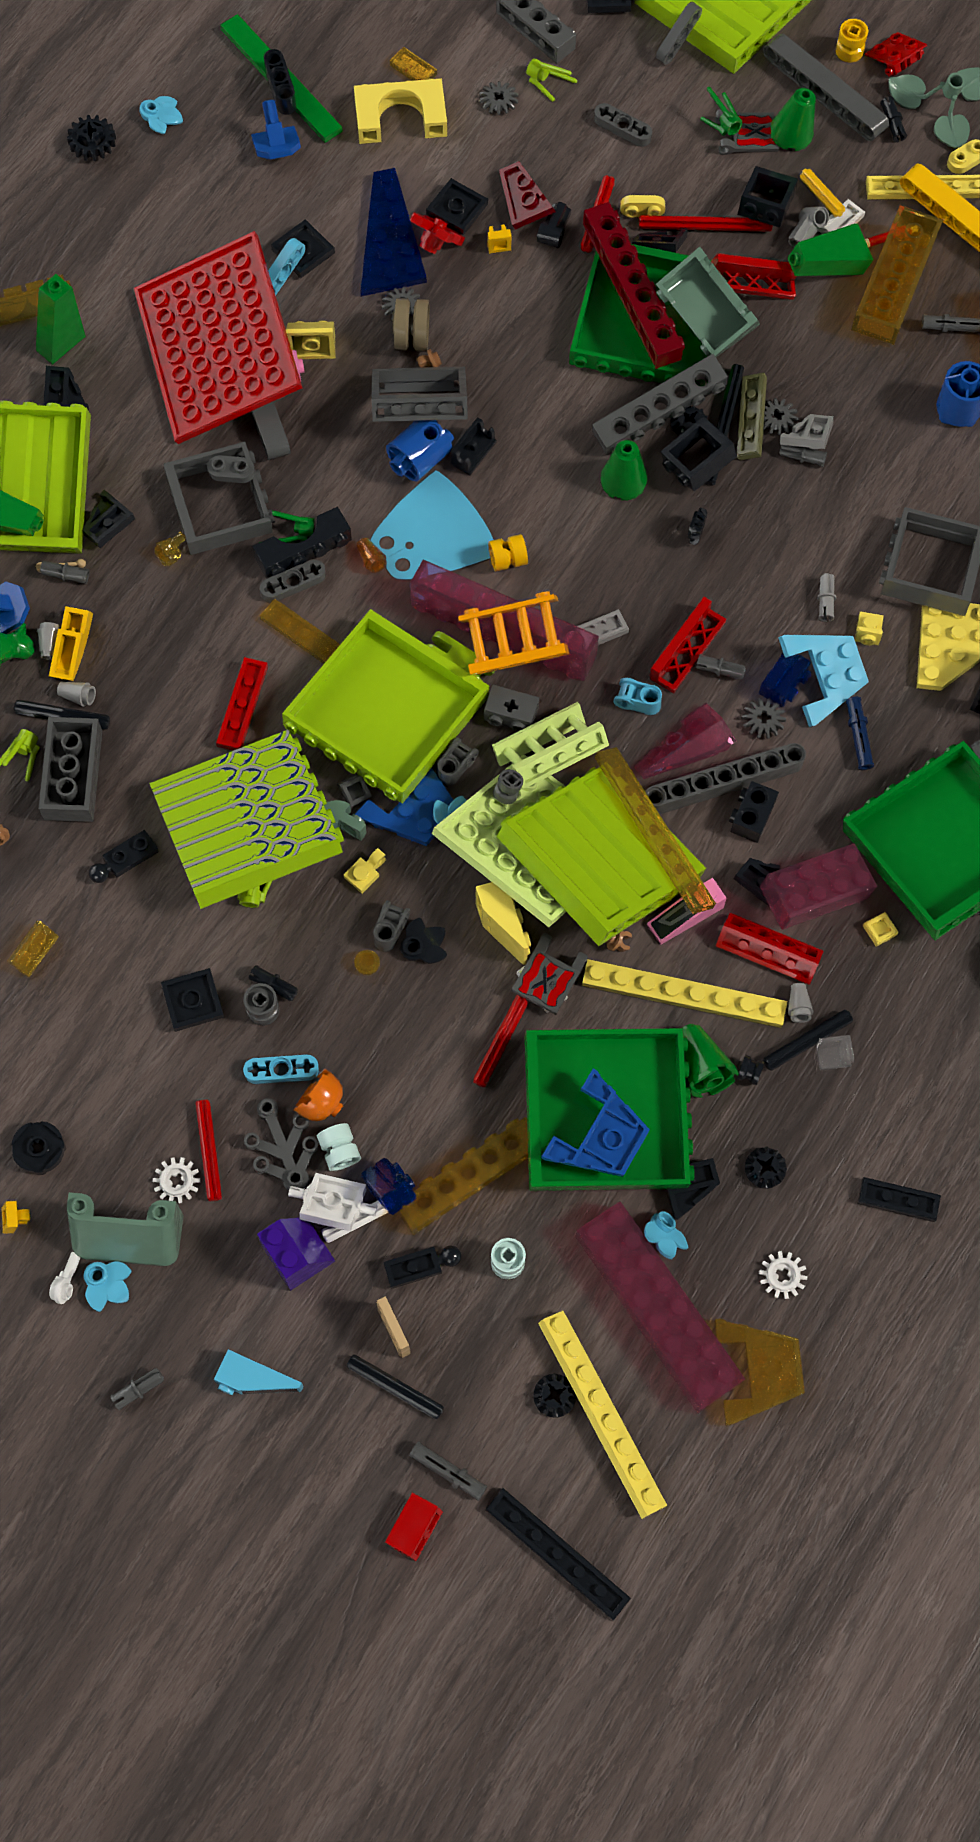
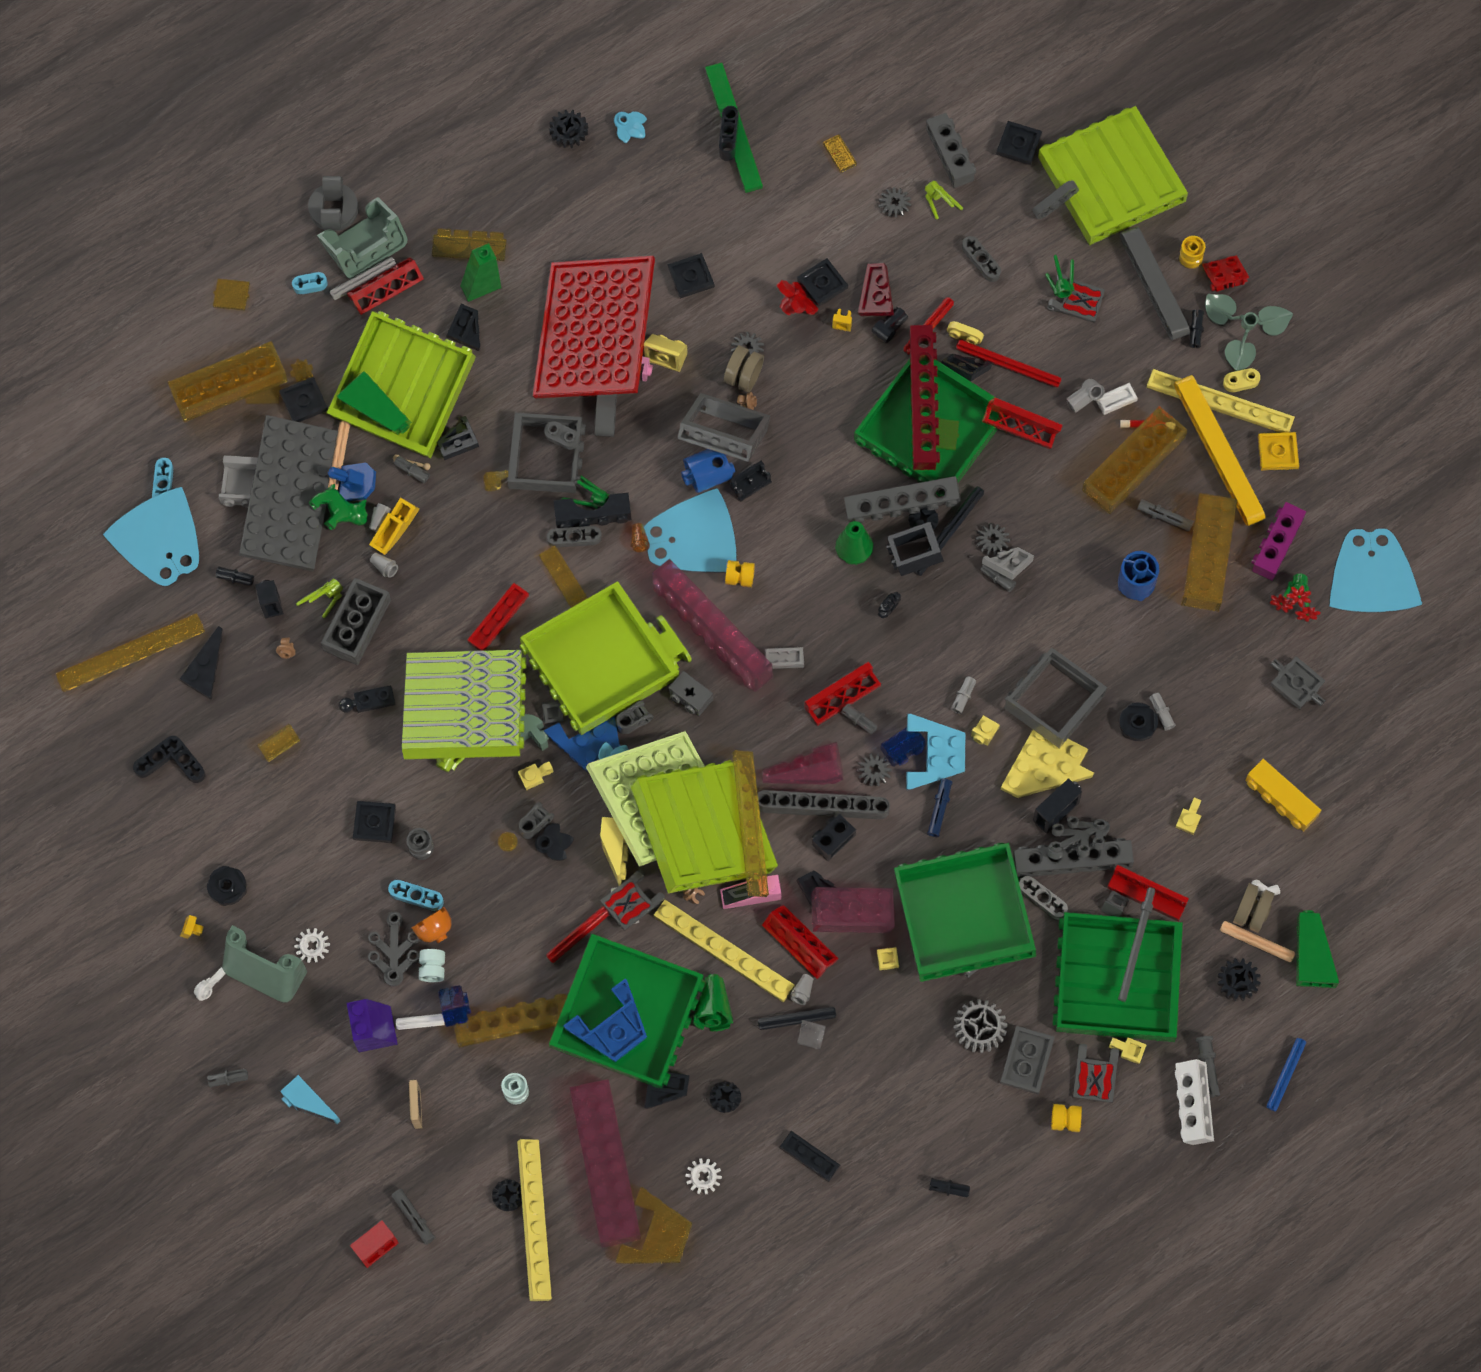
camera: 25 degrees right, 0 degrees up
(44, 711) = (366, 576): black axle -> none
(109, 1287) = (238, 1000): medium azure plate -> none
(208, 1150) = (342, 933): red axle -> none
(275, 141) = (707, 180): blue piece -> none
(280, 986) = (435, 831): black axle -> none
(285, 263) = (668, 286): medium azure beam -> none
(332, 1201) = (411, 1002): white plate -> none
(390, 246) = (758, 298): clear blue wing -> none
(395, 1386) = (402, 1146): black axle -> none
(420, 1265) = (453, 1069): black plate -> none
(423, 95) = (794, 172): light yellow arch -> none
(508, 786) = (657, 752): dark grey wheel -> none
(529, 653) = (698, 656): light orange fence -> none
(558, 1554) = (463, 1301): black tile -> none
(559, 755) = (708, 742): yellowish green fence -> none
(637, 696) = (785, 716): medium azure piece -> none
(665, 1235) = (631, 1115): medium azure plate -> none
(707, 303) = (971, 434): sand green windscreen -> none
(750, 1070) = (745, 1023): black wheel -> none
(751, 416) = (972, 532): olive tile -> none
(770, 184) = (1071, 348): black window -> none
(795, 121) = (1113, 307): green cone -> none
(822, 192) = (1110, 371): yellow axle -> none
(832, 253) = (1090, 425): green slope -> none

